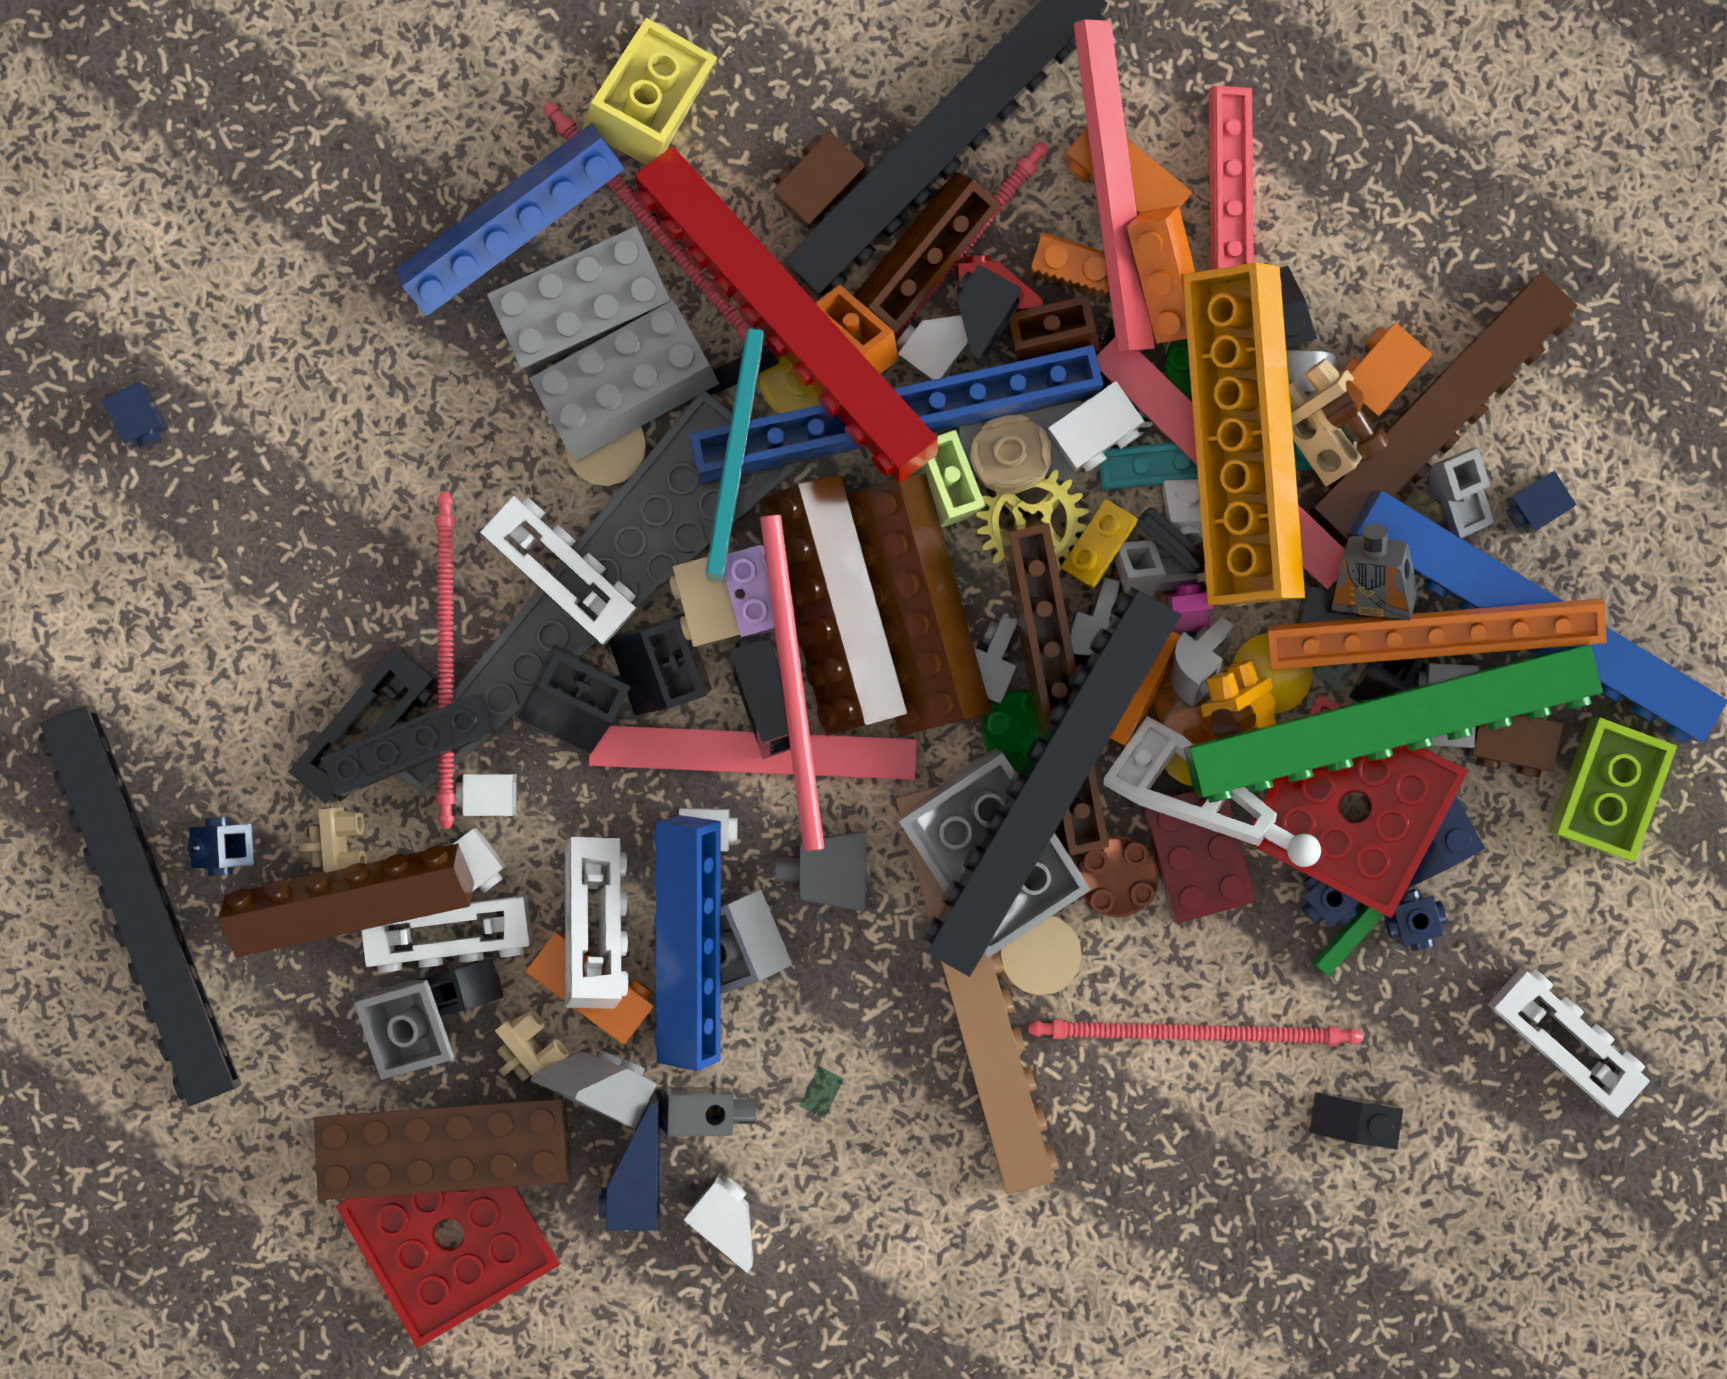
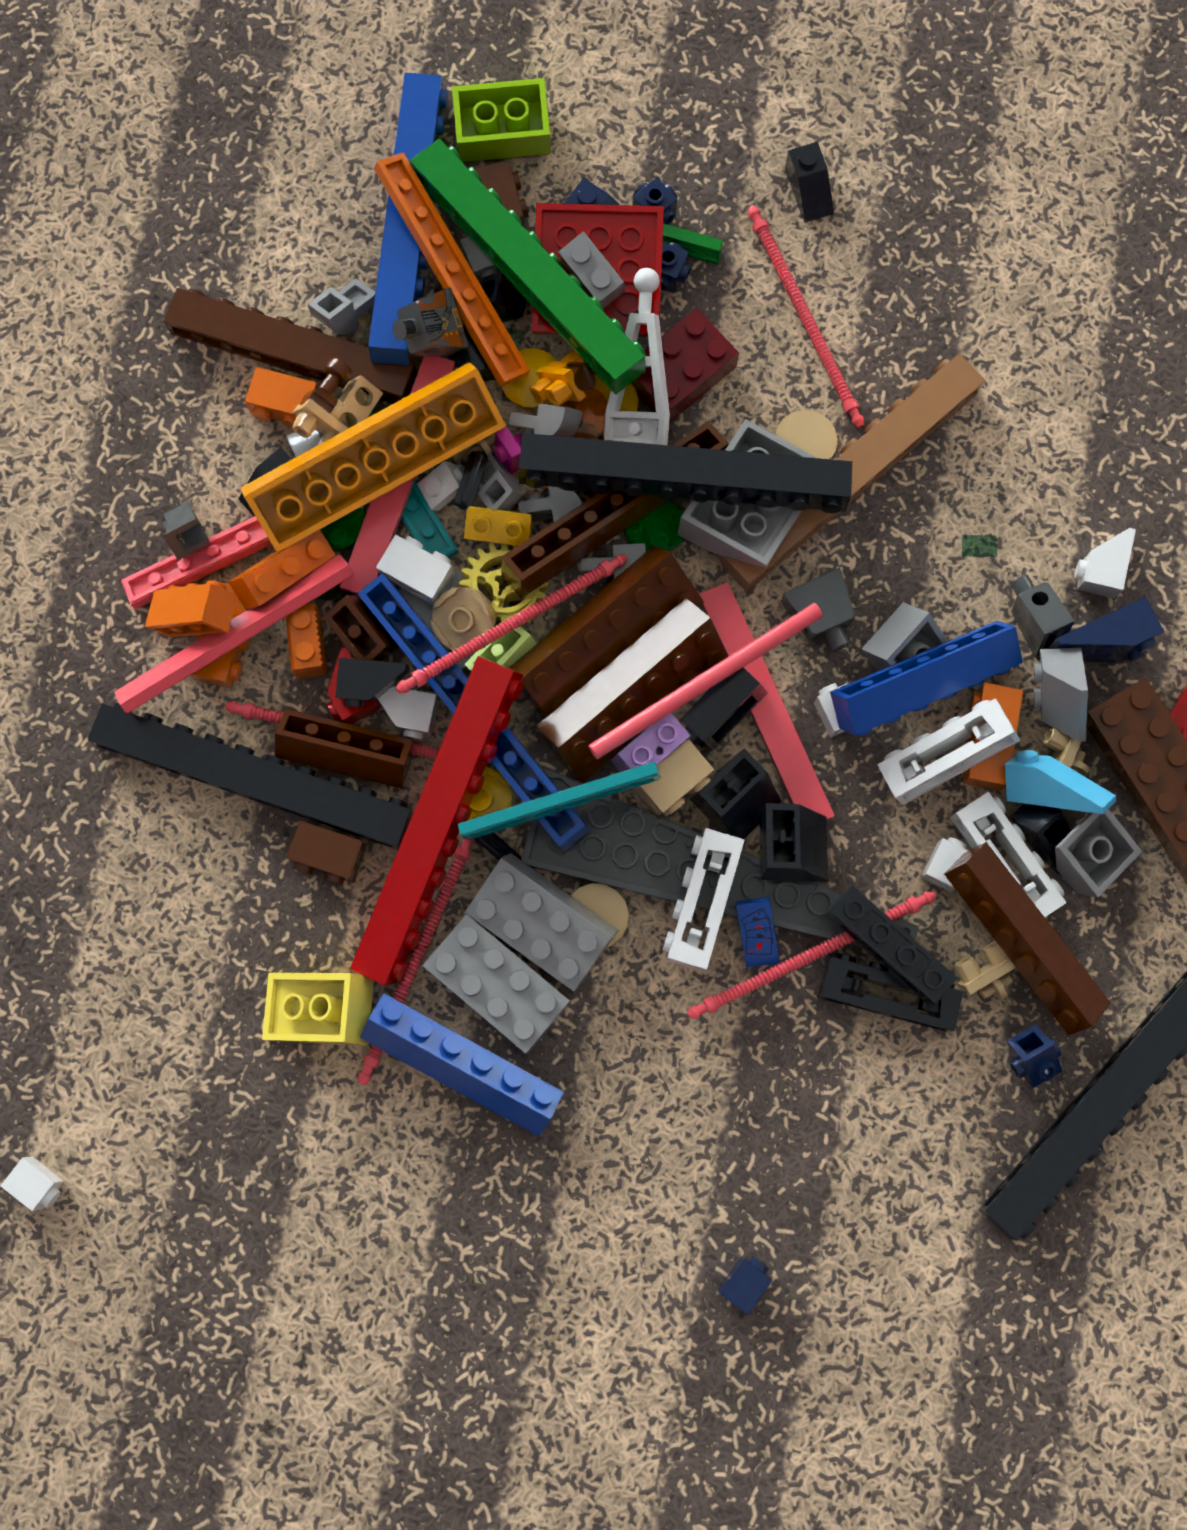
camera: 115 degrees left, 10 degrees down
(487, 794) = (893, 877): white brick -> none
(498, 1016) = (1050, 783): none -> medium azure slope
(499, 613) = (758, 932): none -> blue tile
(861, 327) = (418, 765): orange brick -> none
(989, 640) = (419, 677): none -> coral hose
(1119, 877) = (725, 409): copper dish -> none
(1166, 150) = (191, 610): none -> orange brick
(1271, 184) = (184, 531): none -> dark grey window
(1347, 792) = (592, 269): none -> light grey brick
(1539, 503) = (327, 255): dark blue brick -> none
(1620, 1086) = (698, 30): white brick -> none

